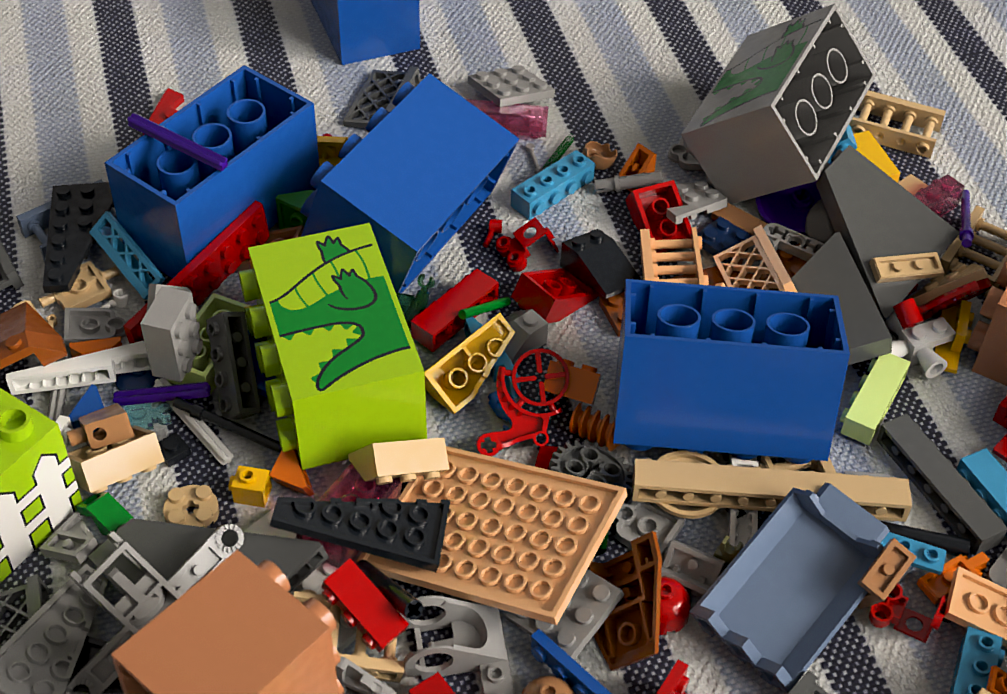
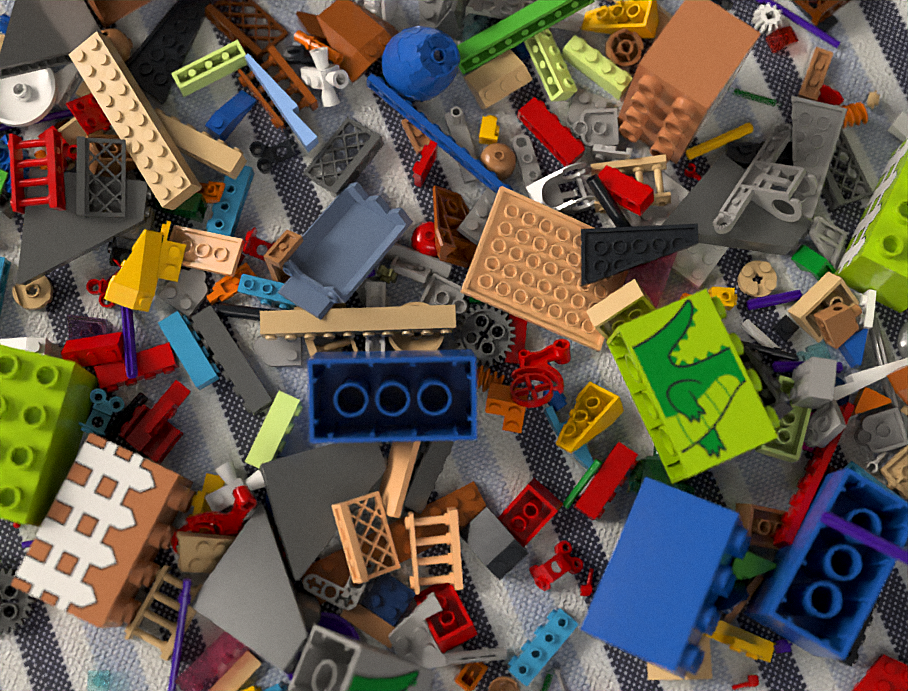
camera: 170 degrees right, 30 degrees up
(171, 481) = (772, 300): none -> dark purple axle
(530, 333) = (556, 468): light grey slope -> none
(906, 267) = (239, 553): tan tile -> none

